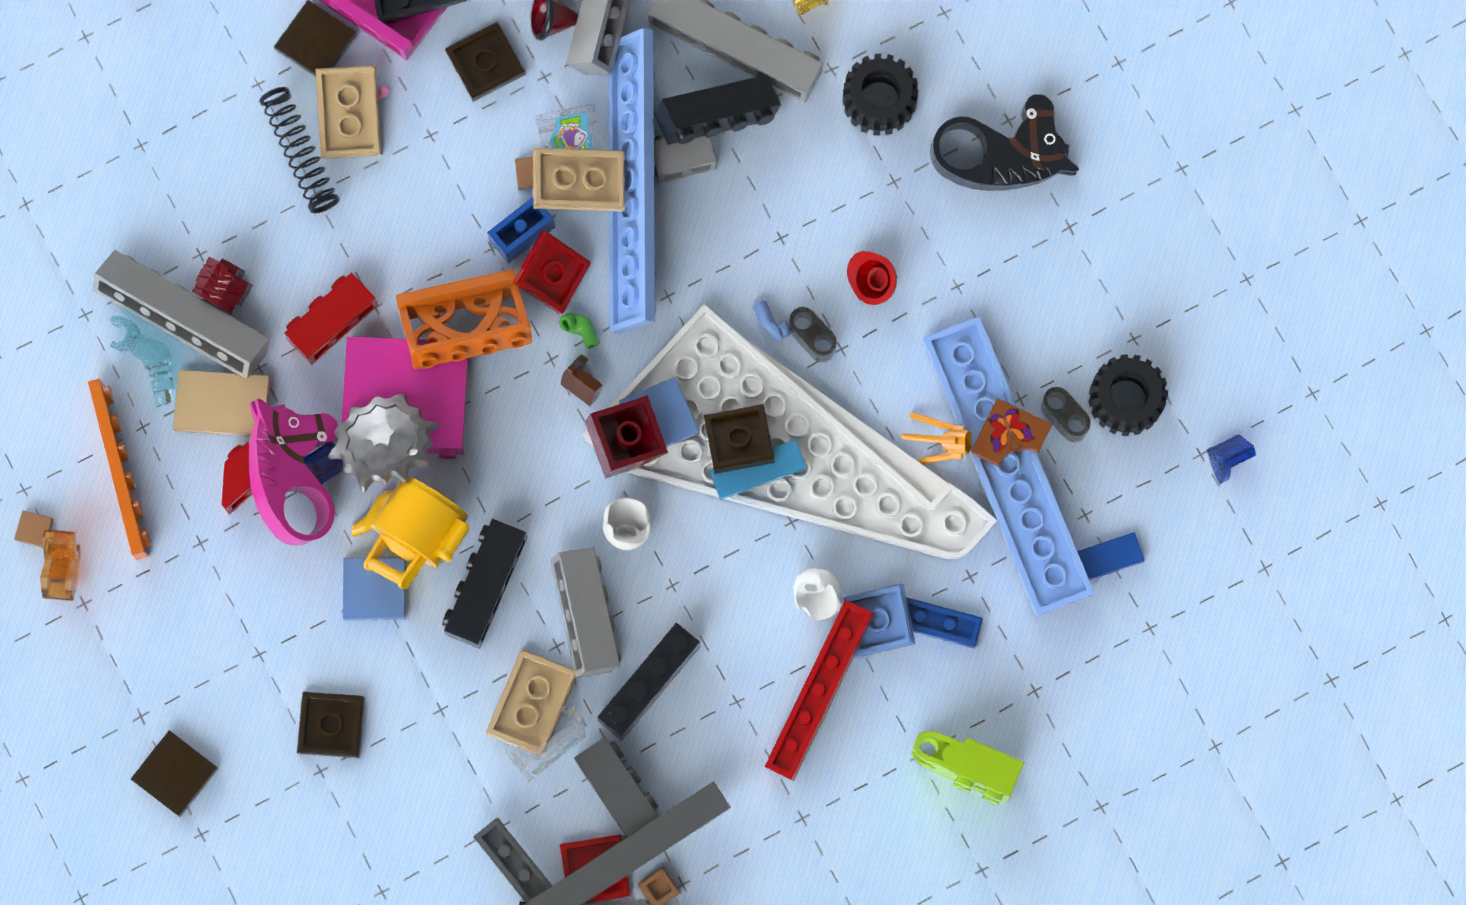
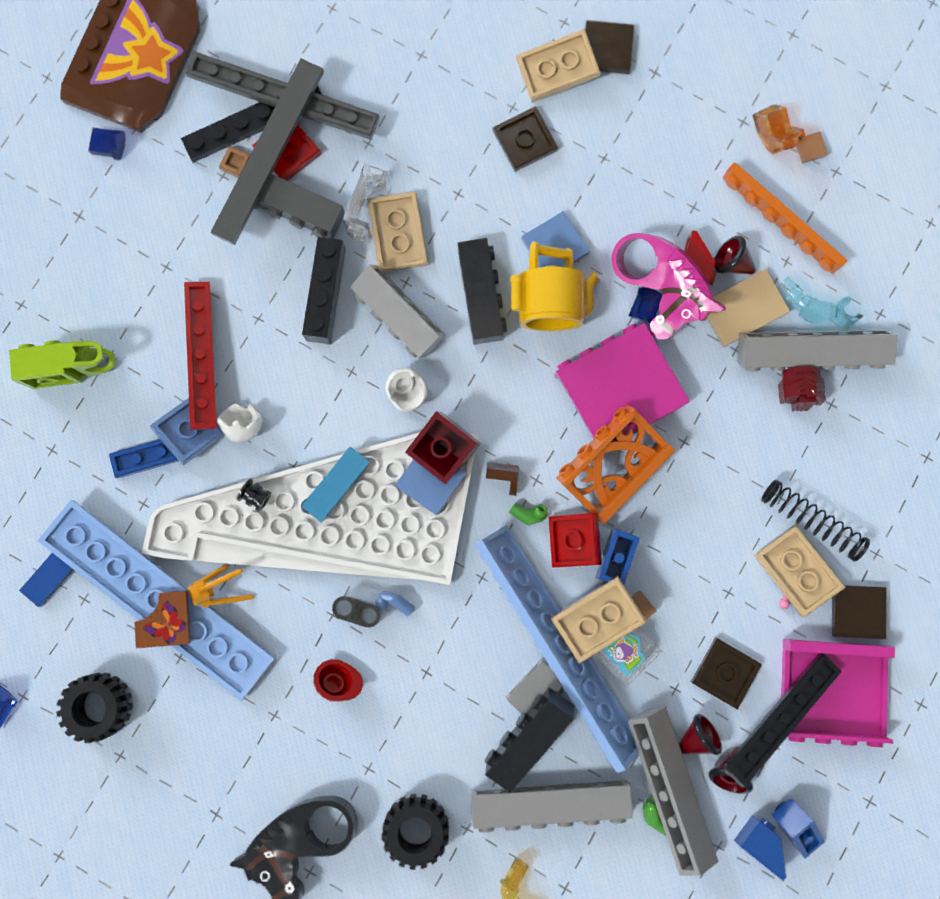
camera: 145 degrees right, 5 degrees up
(199, 459) = (734, 257): none -> dark red hat
(243, 782) = (558, 65): none -> tan tile
(330, 318) = (710, 411): red brick -> none
(383, 441) = (613, 336): flat silver piece -> none
(739, 439) = (362, 497): dark brown tile -> none
(847, 506) = (253, 495): none -> black bush
(1070, 411) = (135, 664): clear smoke beam -> none

